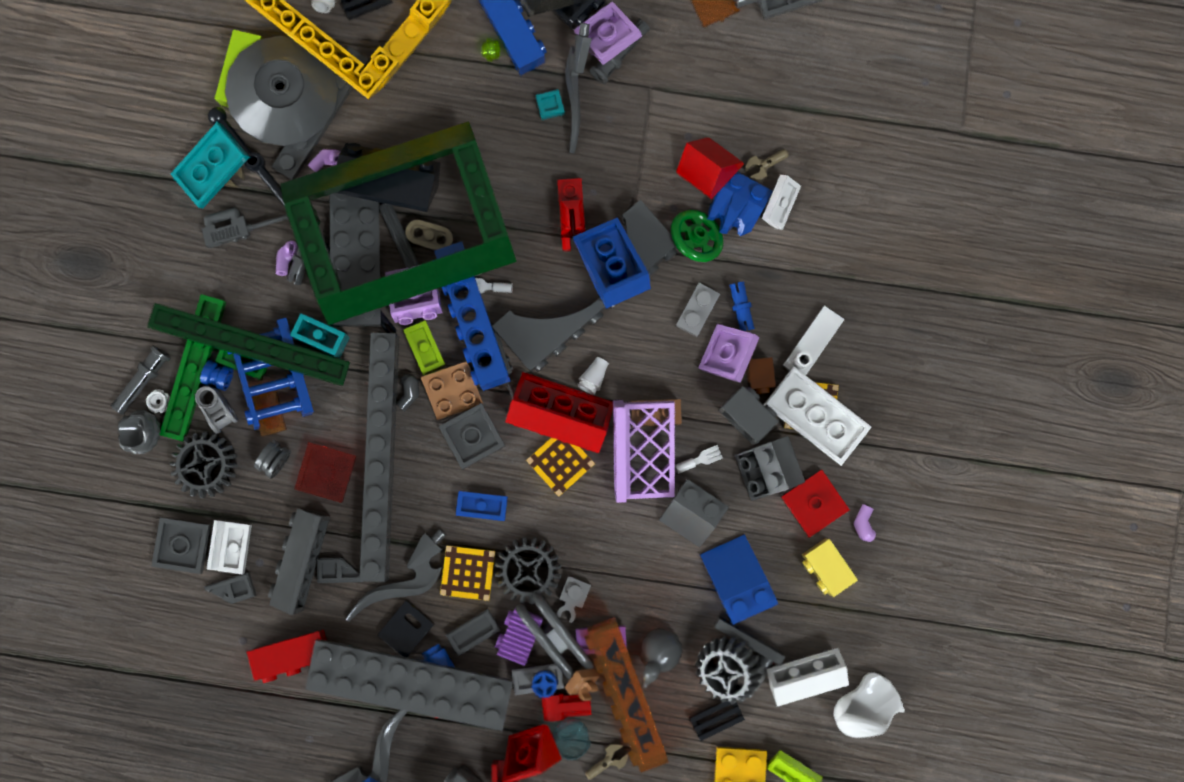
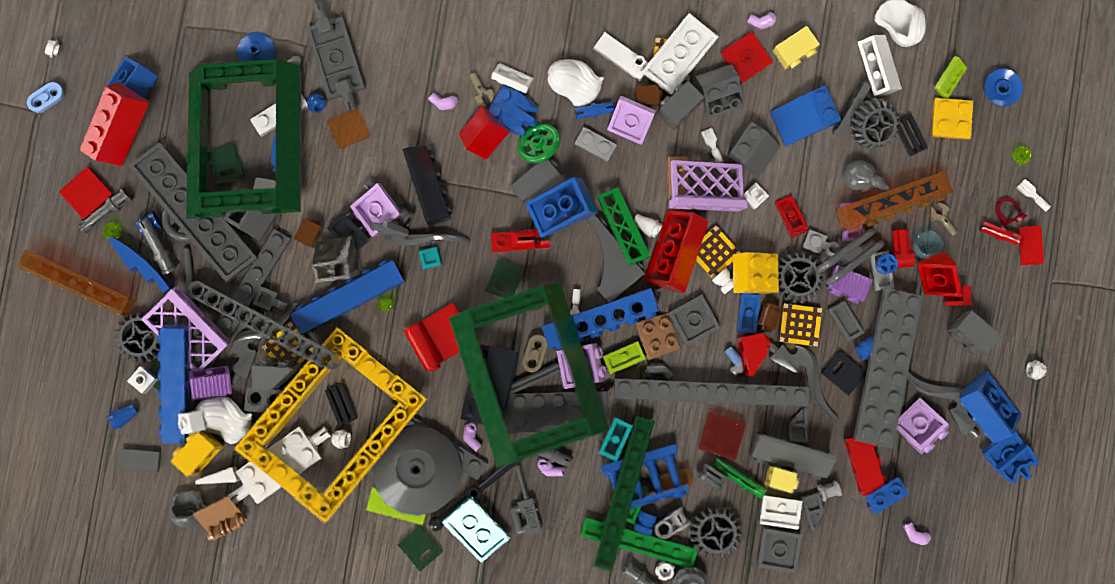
camera: 90 degrees left, 0 degrees up
(193, 95) = (416, 544): none -> clear green piece
(197, 720) = (916, 537): none -> lavender arm
(246, 682) = (886, 496): none -> blue bracket
(256, 609) = (829, 490): none -> light grey bush
(266, 546) = (781, 479): none -> light yellow brick
(272, 494) = (758, 490): none -> green pin
(336, 729) = (922, 426): none -> lavender plate
(422, 490) = (737, 361): none -> arm
(430, 510) = (753, 351): none -> red slope
(446, 106) = (434, 338): none -> red door
(475, 532) = (769, 317): none -> reddish brown brick
(522, 475) = (724, 280): none -> white wheel
(528, 199) = (505, 275): none -> clear green piece
(531, 513) = (755, 273): none -> yellow brick
(583, 682) = (885, 236): medium nougat tile -> none
(594, 351) = (627, 224): none -> green fence
(608, 561) = (791, 216): none -> red slope
(634, 514) = (755, 196): none -> white tile
(640, 95) = (426, 184): none -> black slope
(746, 117) = (443, 103): none -> lavender arm
(779, 280) = (574, 81): none -> white piece

